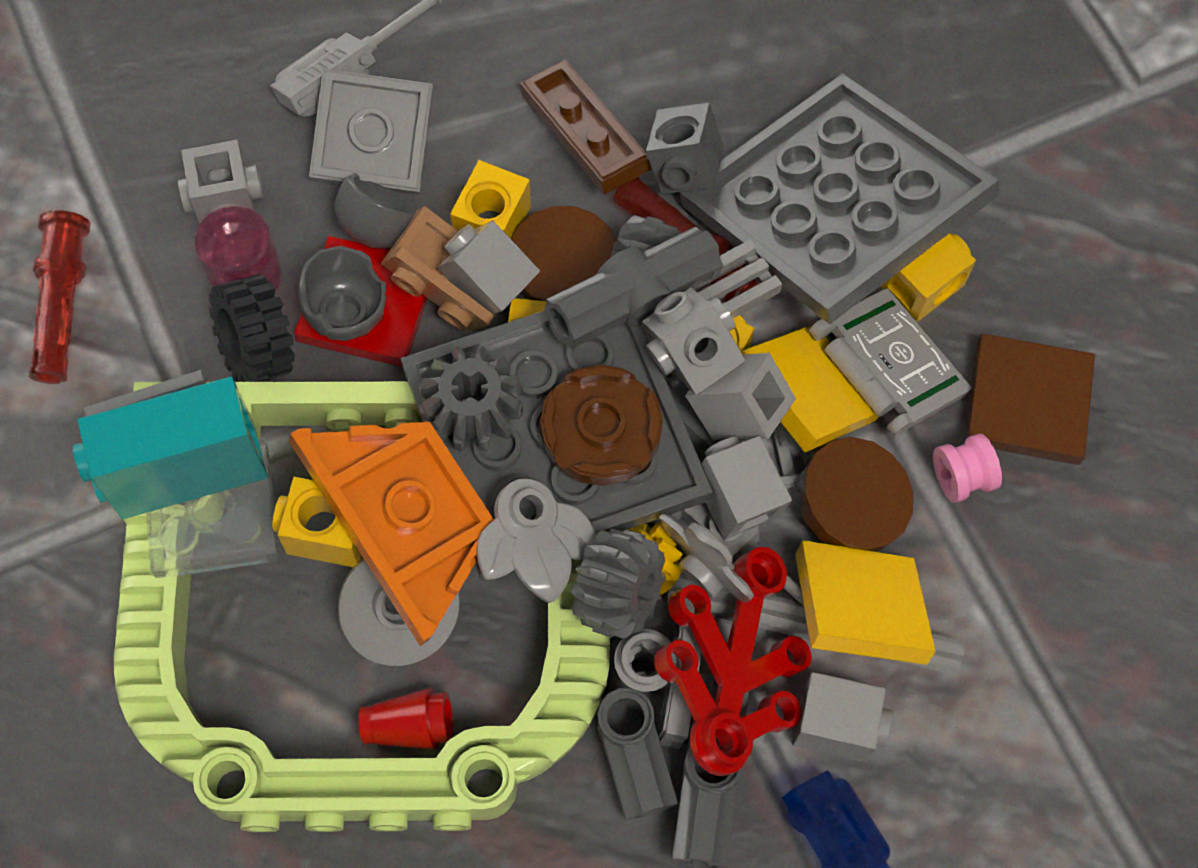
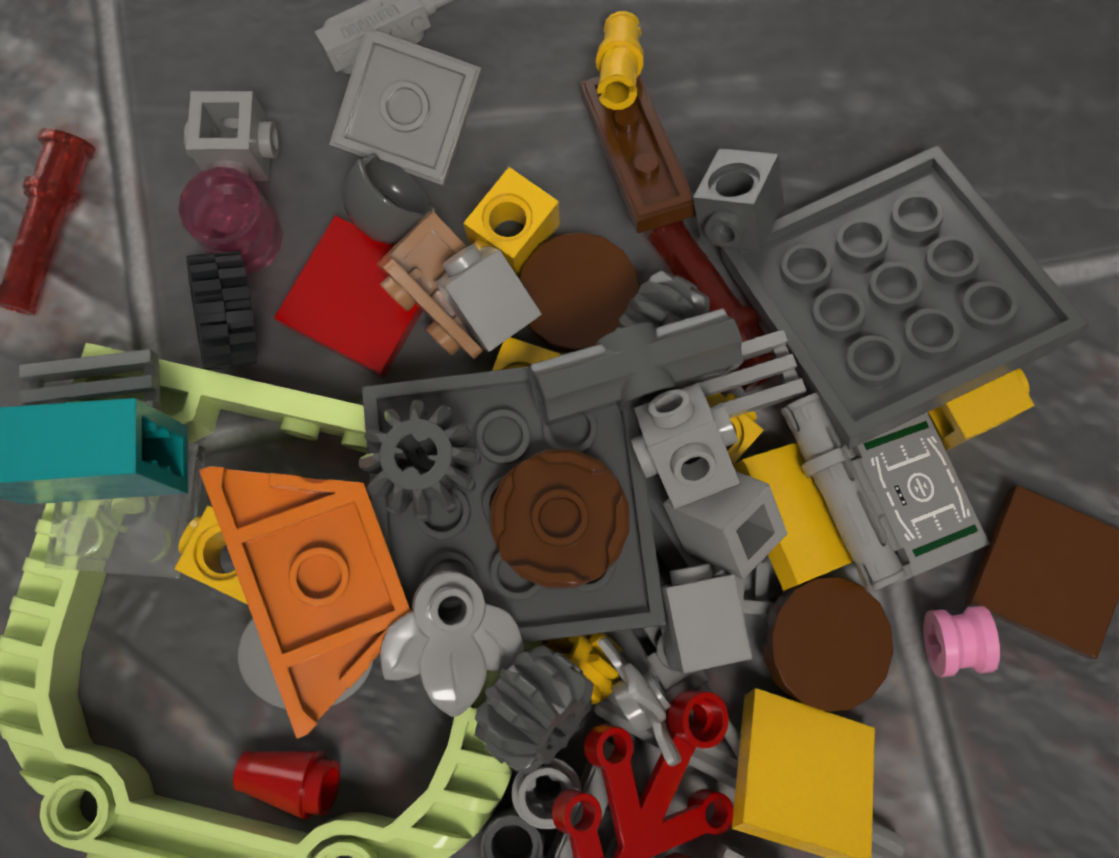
camera: 20 degrees right, 10 degrees up
(341, 293) = (324, 290): dark grey hair -> none
(552, 55) = (619, 60): none -> yellow pin
(821, 346) = (843, 493): none -> light grey pin

